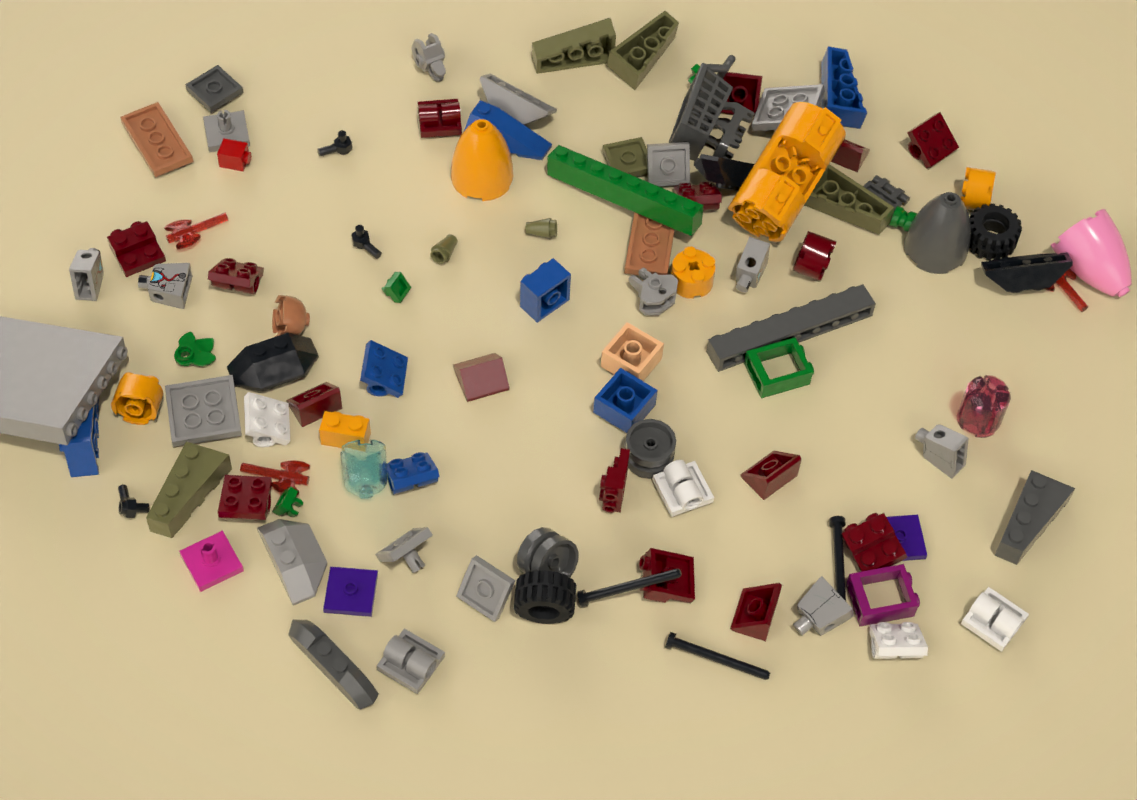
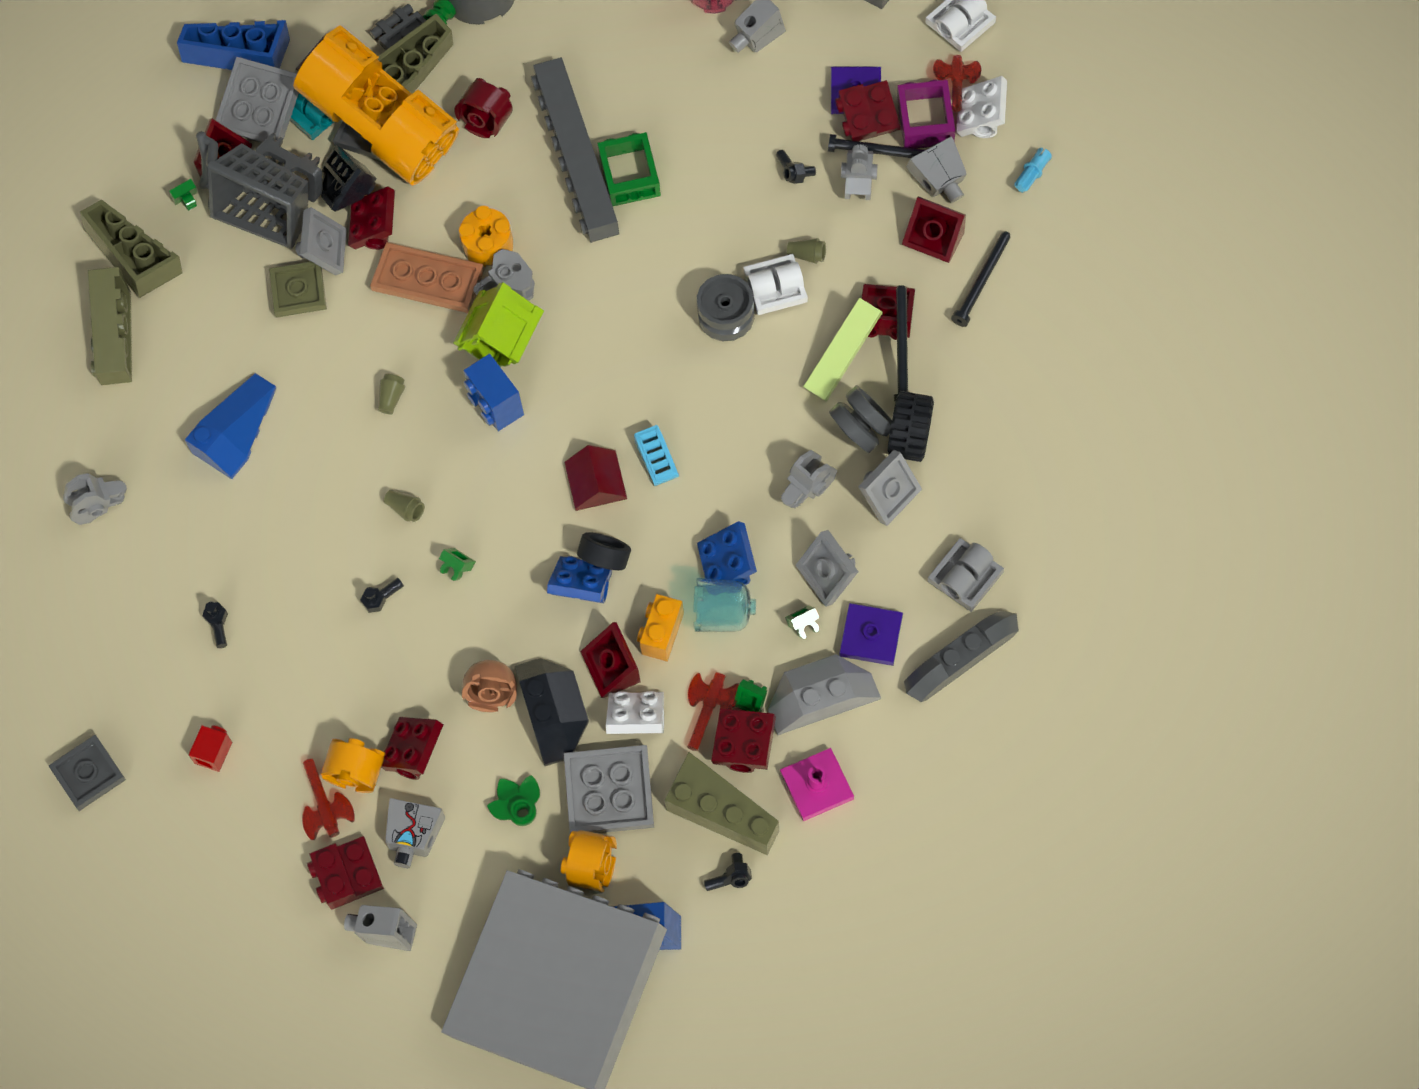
camera: 75 degrees left, 10 degrees up
(156, 139) = (163, 847): nougat plate -> none
(216, 236) = (352, 765): none -> light orange brick
(226, 125) = (162, 760): light grey tile -> none
(360, 534) = (802, 618): none -> tile
(397, 383) = (603, 551): none -> black tyre
(439, 118) = (192, 496): dark red plate -> none
(482, 162) = (287, 449): light orange cylinder -> none
(490, 524) = (807, 479): none -> light grey hinge
(503, 409) = (651, 439): none -> medium azure slope
(514, 101) = (189, 400): light grey wedge -> none
(602, 283) = (498, 325): none -> lime container
(613, 484) = (771, 341): dark red plate -> none
(619, 541) = (843, 349): none -> yellowish green tile
(625, 190) = (355, 293): green brick -> none
(625, 400) = (659, 325): blue brick -> none
(633, 352) = (596, 311): light nougat brick -> none
(721, 512) = (808, 250): none -> olive cone
(752, 264) = (487, 173): light grey torso -> none
(772, 472) = (764, 194): dark red slope -> none
(800, 493) = (794, 171): none -> black piece
(805, 542) = (859, 172): none -> light grey hinge
(840, 692) = (1033, 170): none -> medium azure axle
(933, 618) = (957, 72): none -> clear red piece

